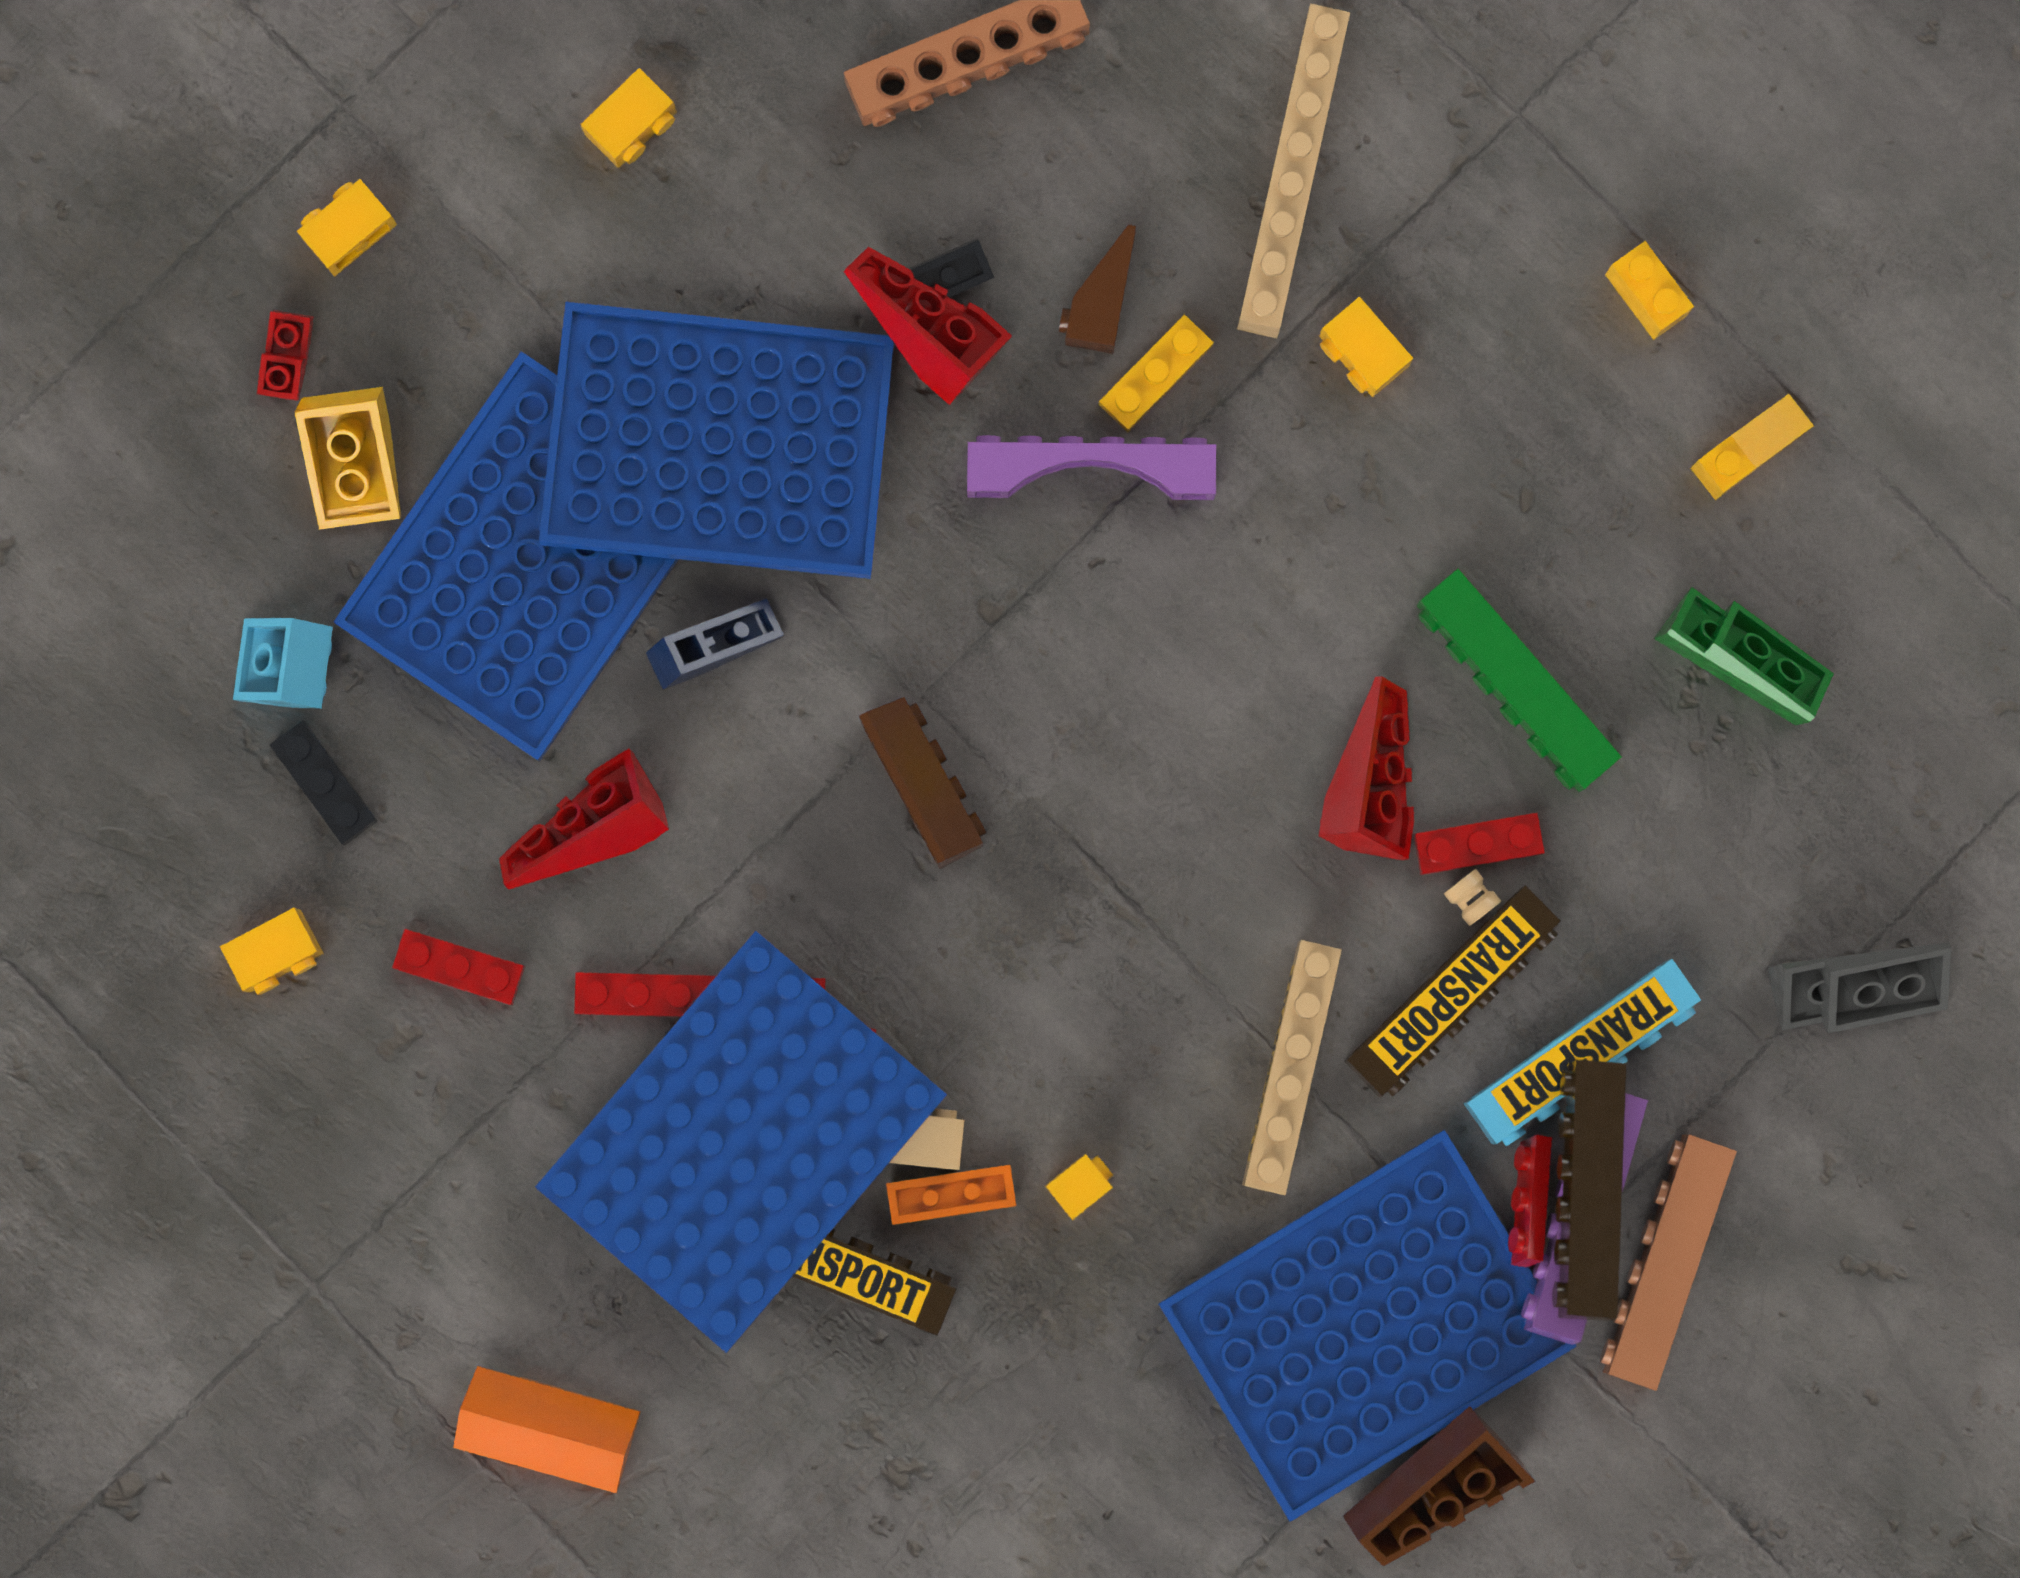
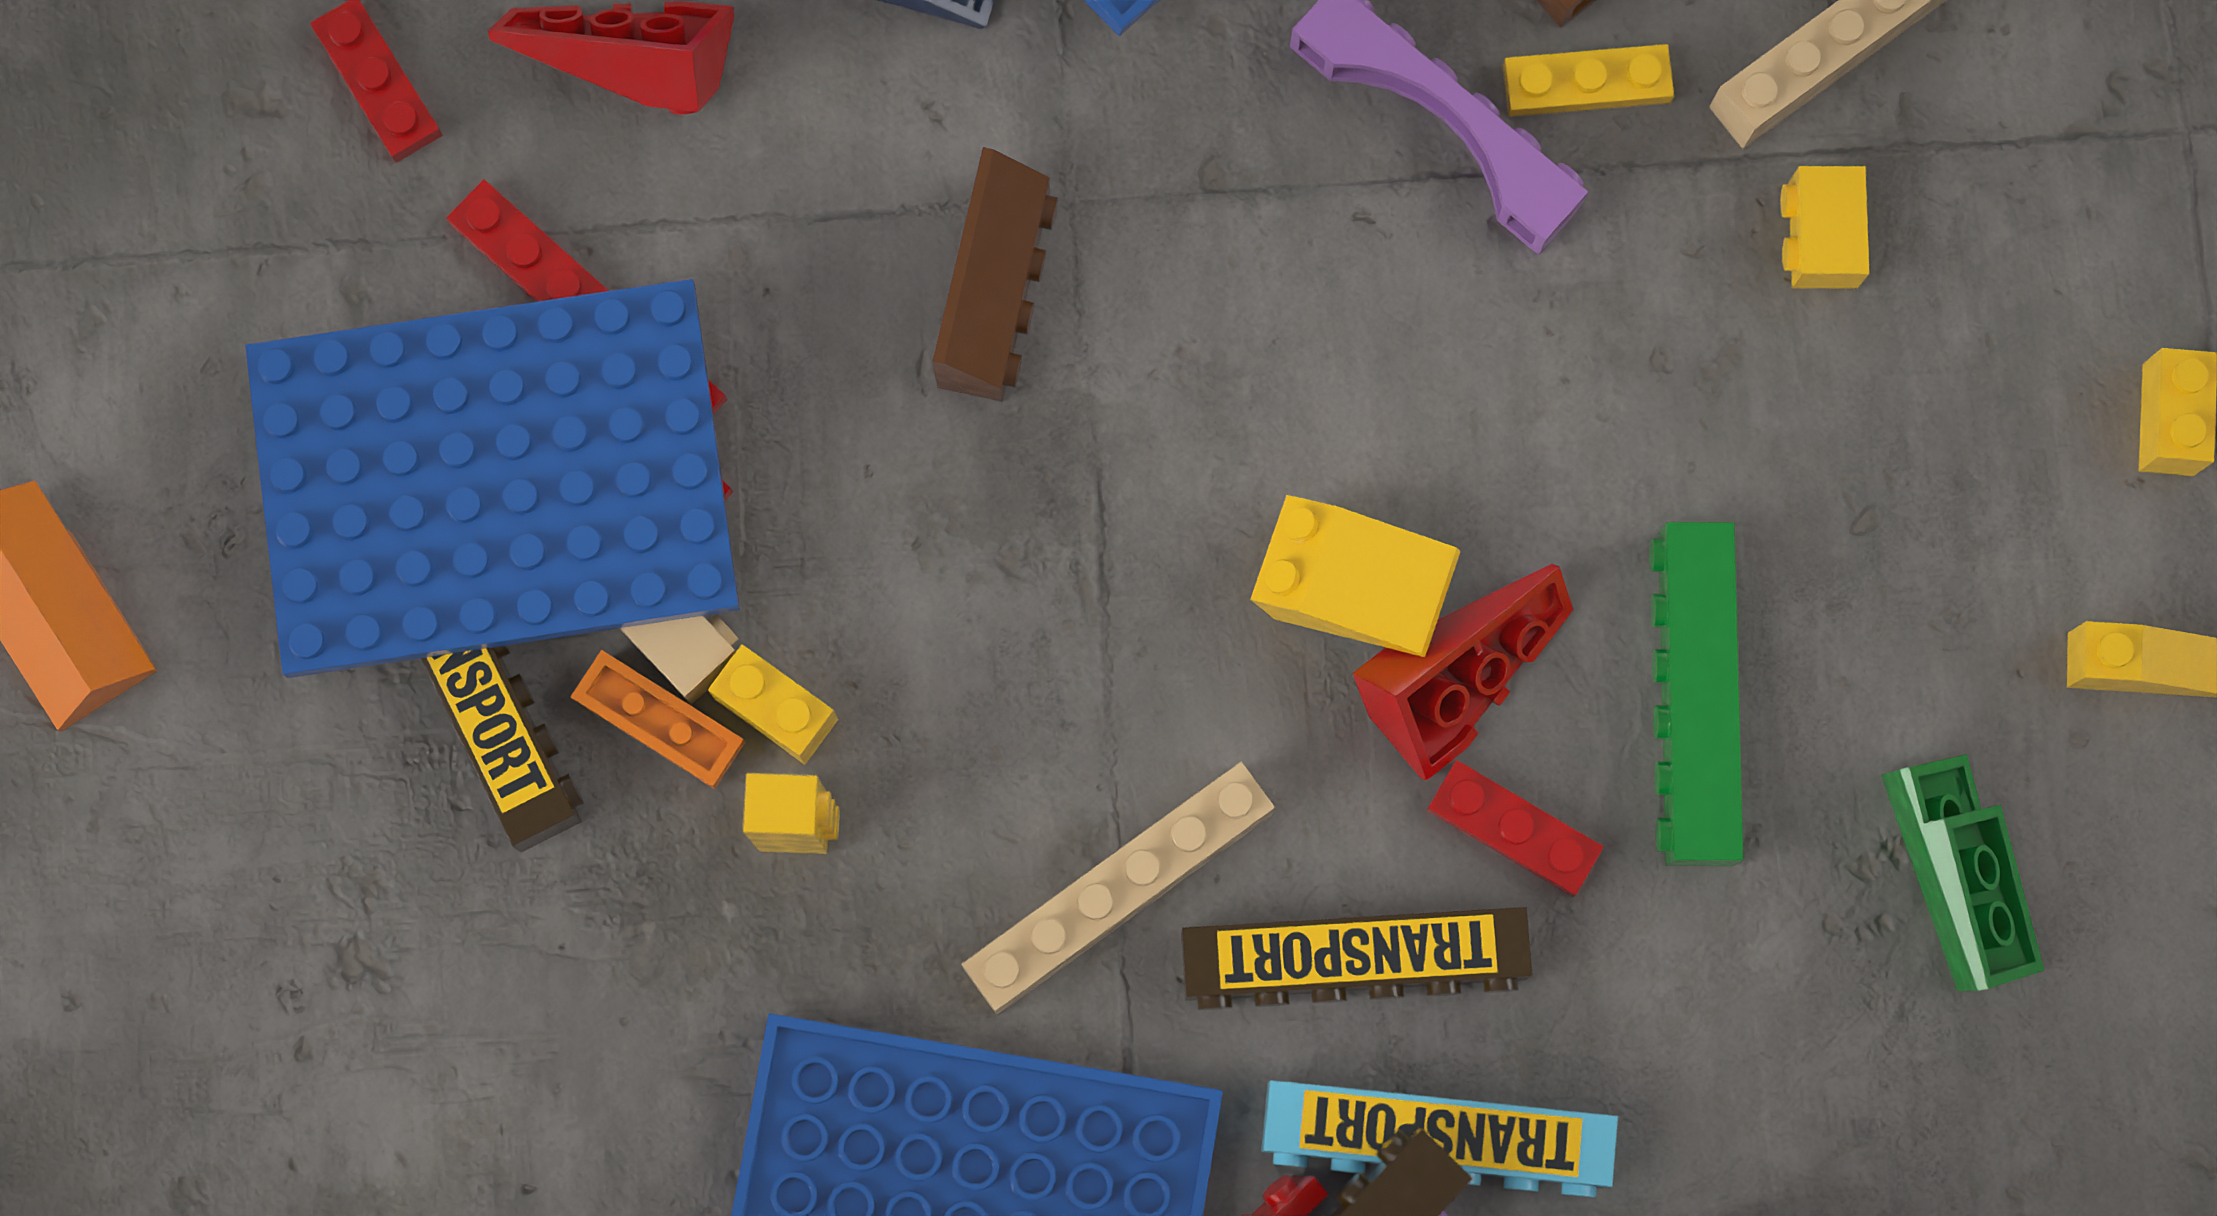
camera: 40 degrees right, 5 degrees down
(1010, 1130) = (773, 704): none -> yellow brick
(1274, 780) = (1354, 576): none -> yellow slope
(1466, 890) = (1460, 862): tan wheel -> none

